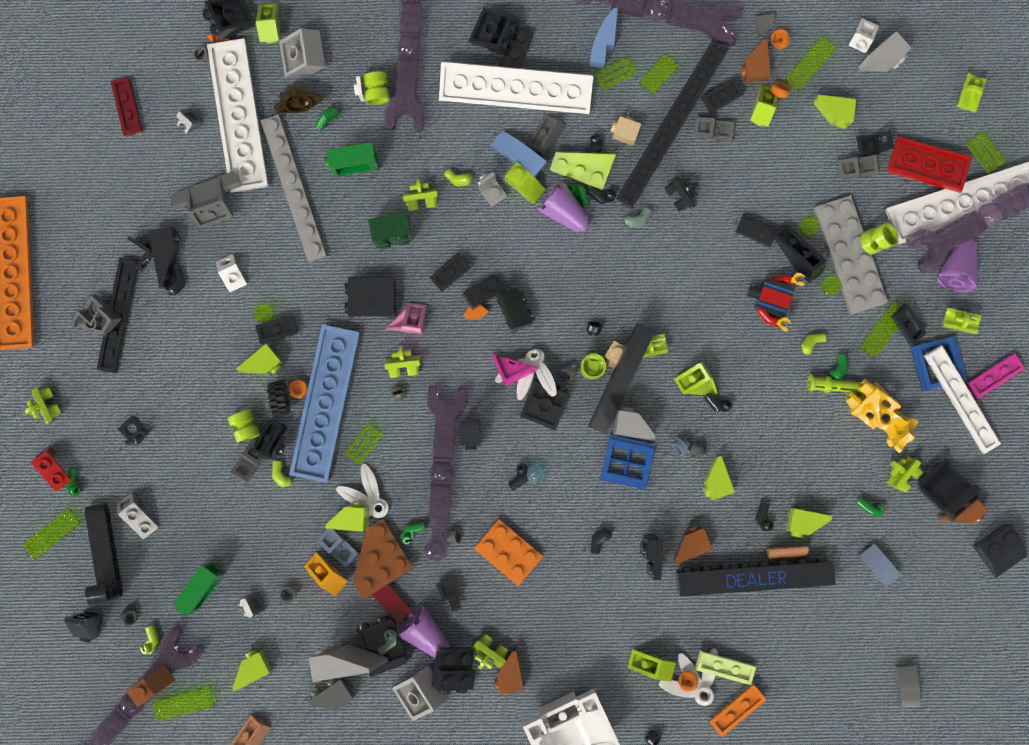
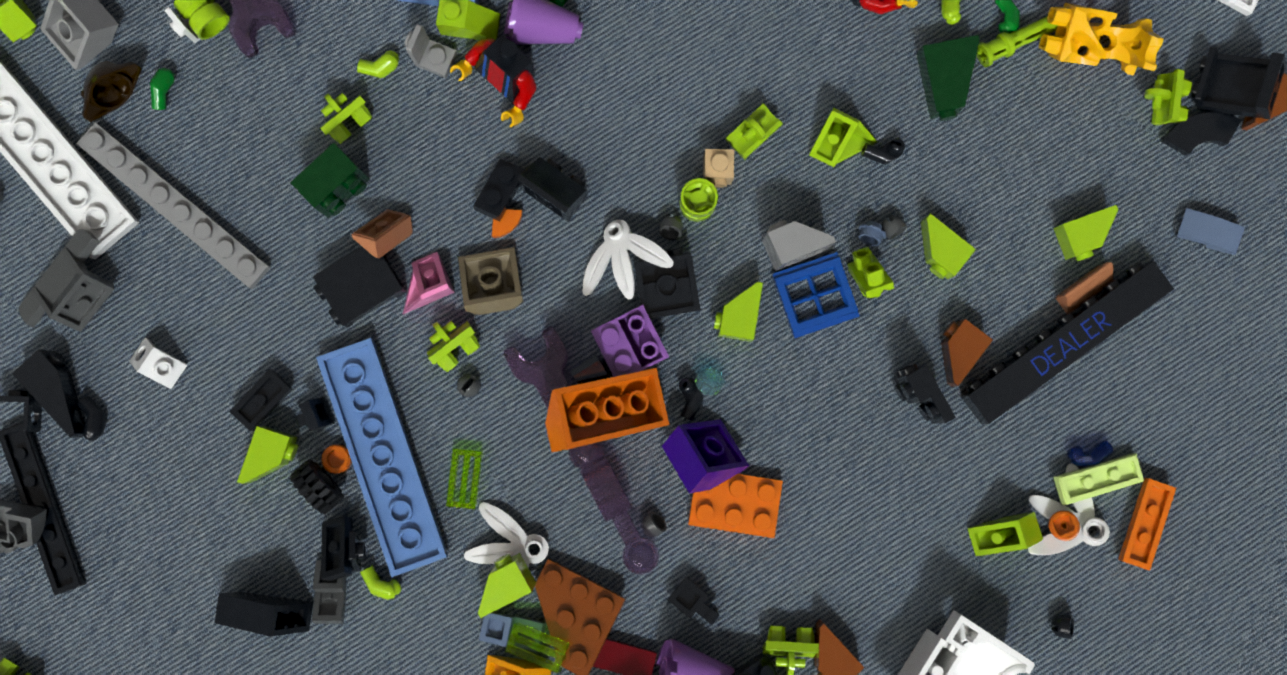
camera: 35 degrees left, 0 degrees up
(137, 437) = (160, 650): black bracket -> none
(206, 451) = (263, 613): none -> black slope
(244, 426) = (293, 550): lime wheel -> none
(263, 313) = (232, 388): clear neon green tile -> none
(301, 357) = (314, 414): none -> black tile
(351, 159) = (224, 121): green window -> none
(356, 577) = (543, 637): none -> clear neon green tile
(403, 277) = (384, 232): none -> nougat slope
(410, 530) = (592, 552): green arm -> none
(446, 341) = (490, 281): none -> dark tan slope
(450, 272) = (442, 191): black plate -> none
(466, 454) = (605, 410): none -> orange slope
(503, 425) = (630, 343): none -> medium lavender slope
(507, 514) = (704, 455): none -> dark purple slope
(512, 370) = (597, 266): dark pink tile -> none
(528, 226) = (505, 69): none -> torso
(576, 447) = (740, 315): none -> lime slope
(594, 328) = (669, 151): black hinge -> none
(599, 537) = (838, 414): black arm -> none
(621, 378) = (744, 190): black tile -> none
(665, 468) = (869, 273): none -> lime hips
(729, 652) = (1090, 457): none -> clear blue arm
(762, 519) = (1029, 263): black arm -> none
(782, 381) = (947, 75): none -> dark green slope
(870, 509) = (1153, 168): green arm -> none
(913, 503) = (1200, 129): none -> black tile

